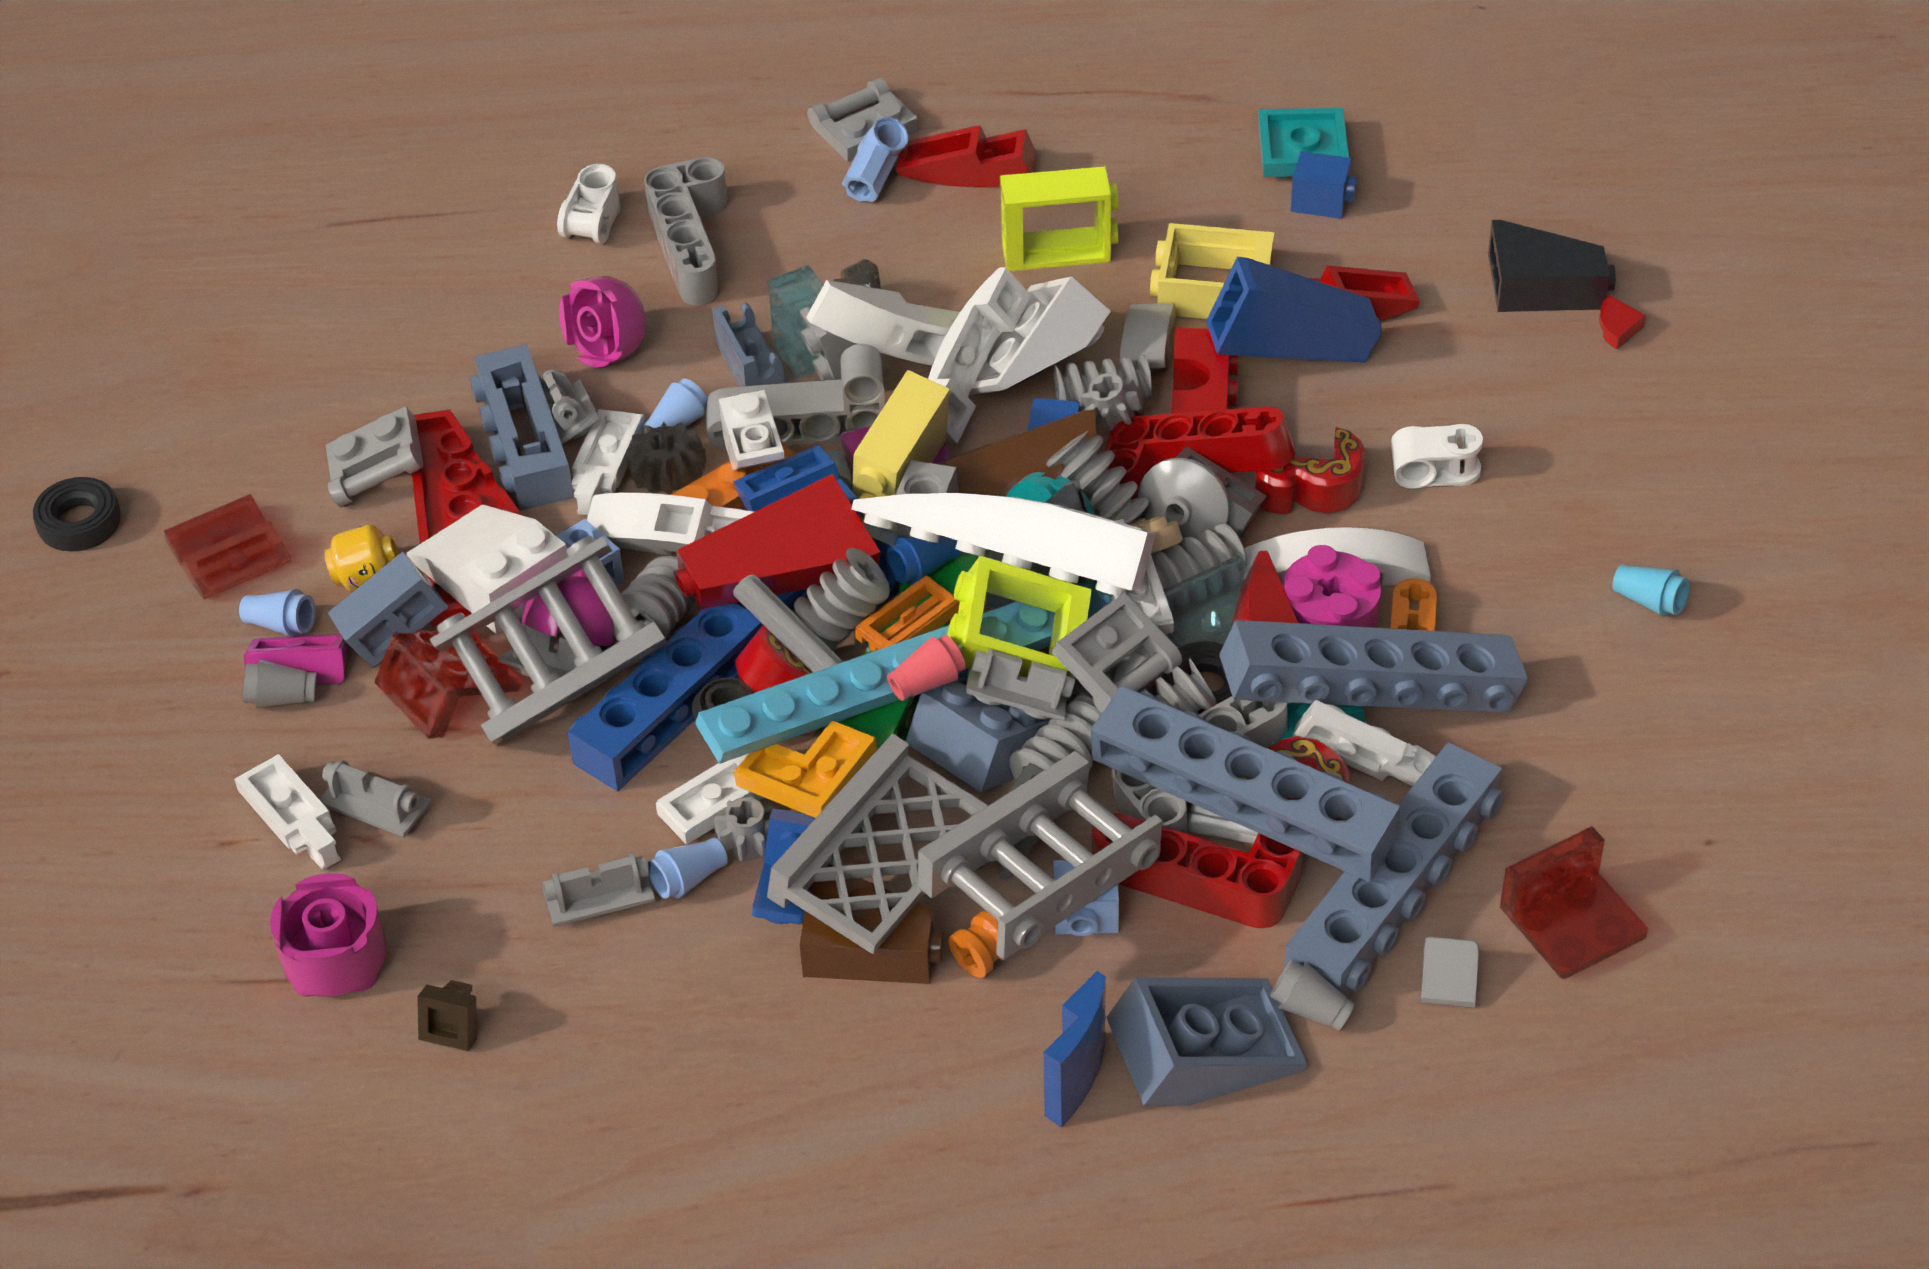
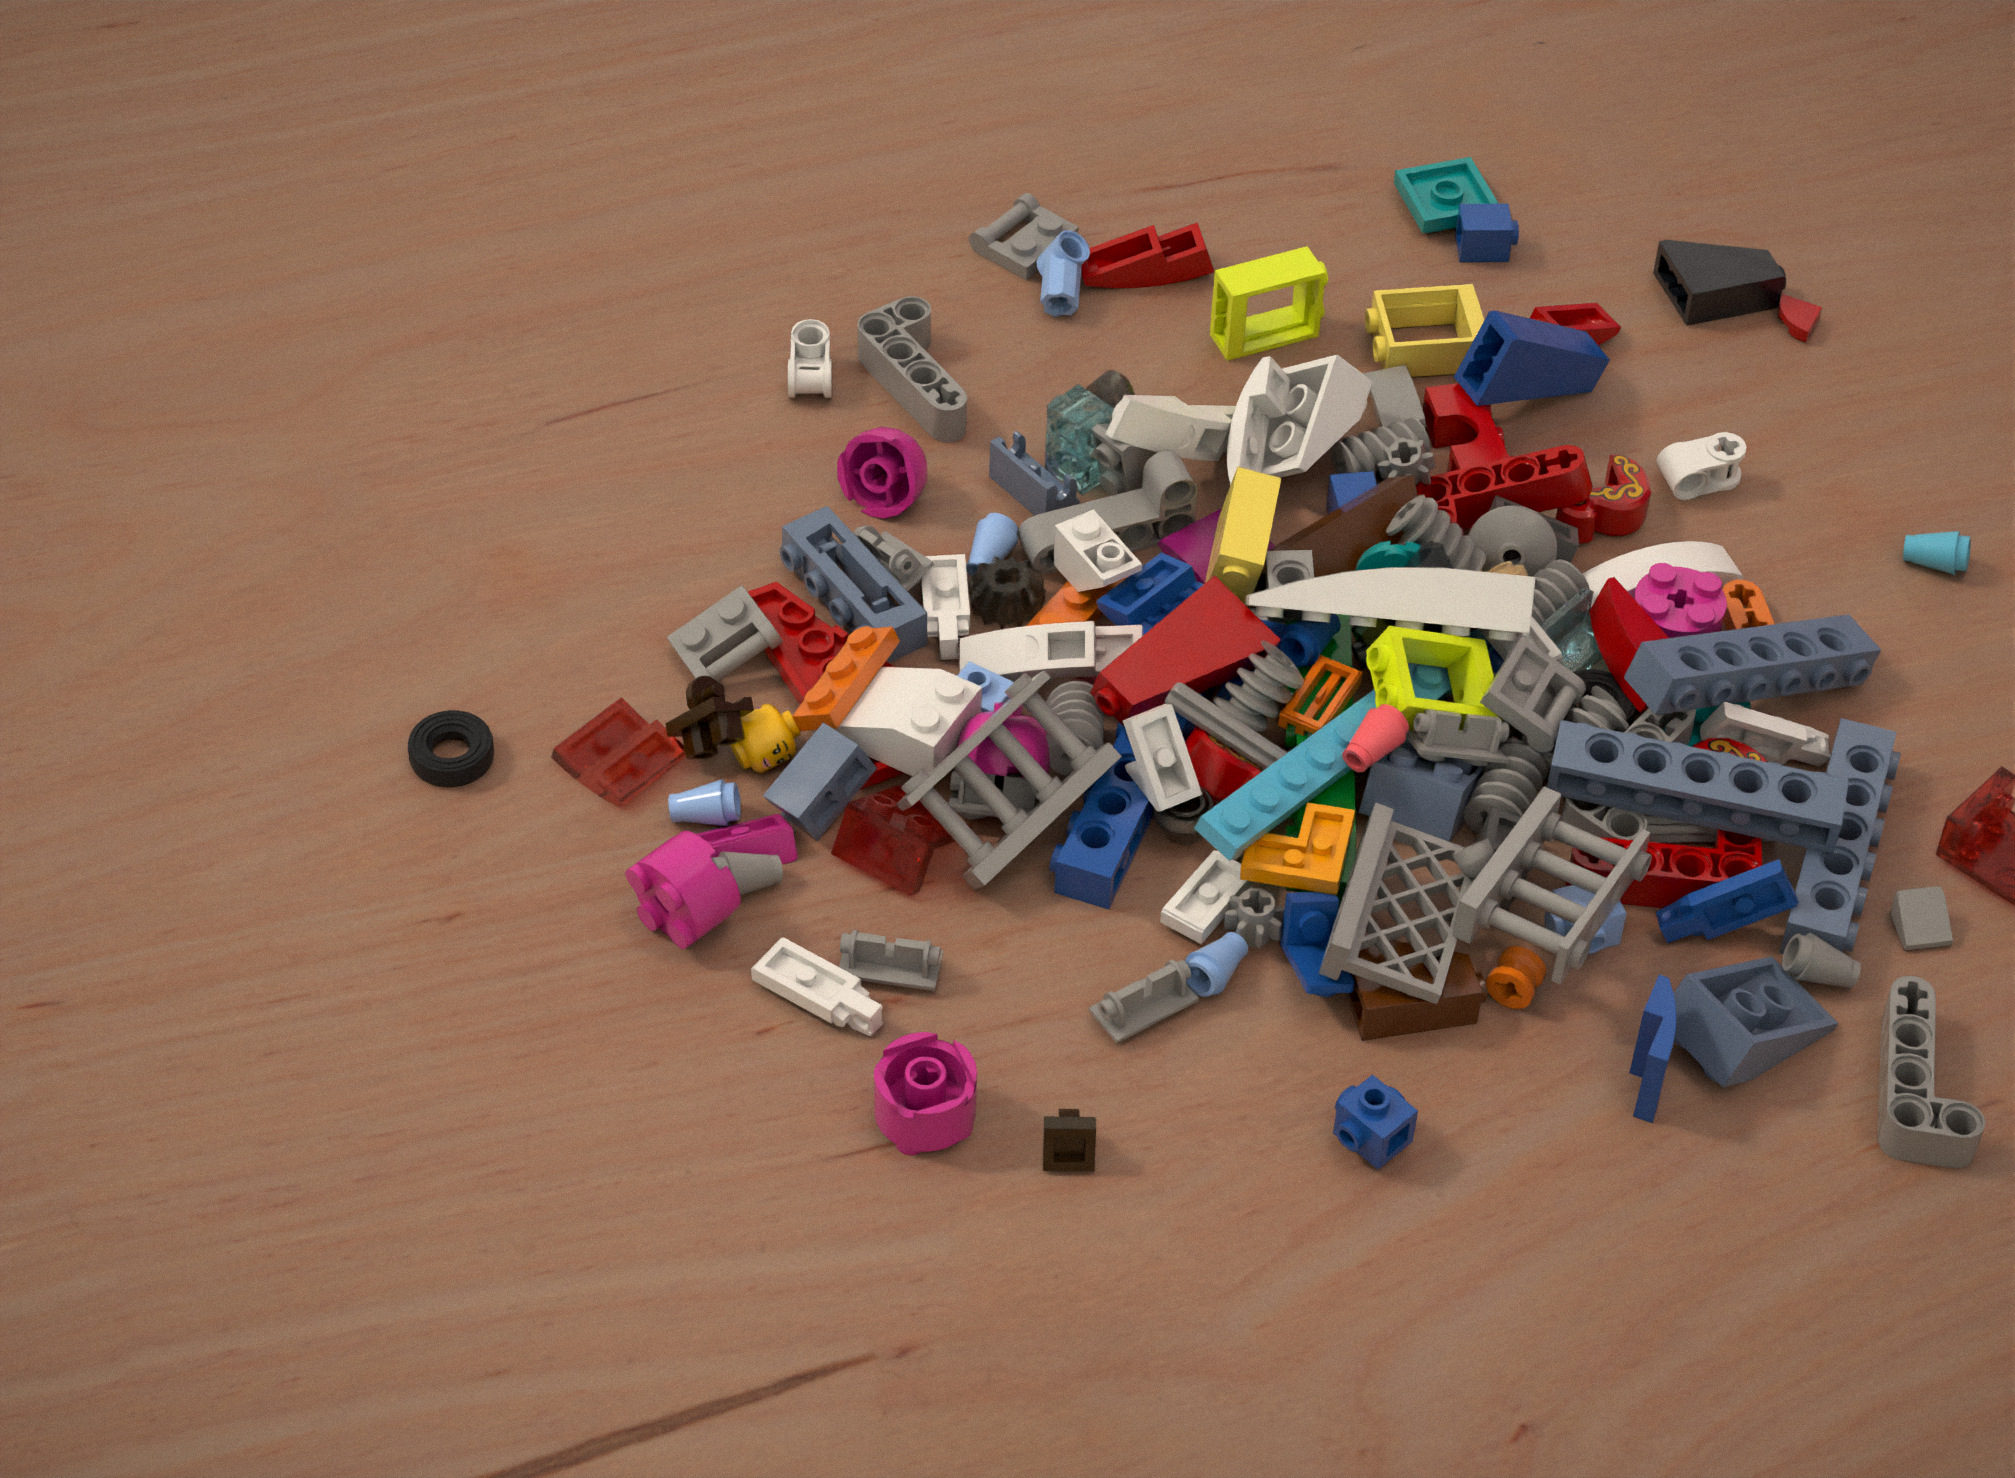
camera: 20 degrees left, 0 degrees up
(199, 688) = (683, 889): none -> dark pink brick
(309, 527) = (710, 719): none -> dark brown hips
(456, 512) = (846, 678): none -> orange plate
(707, 647) = (1162, 759): none -> white slope
(757, 1061) = (1374, 1121): none -> blue brick
(970, 806) = (1474, 857): none -> light grey hinge
(1237, 913) = (1729, 904): none -> blue hinge
(1345, 1124) = (1910, 1119): none -> light grey beam

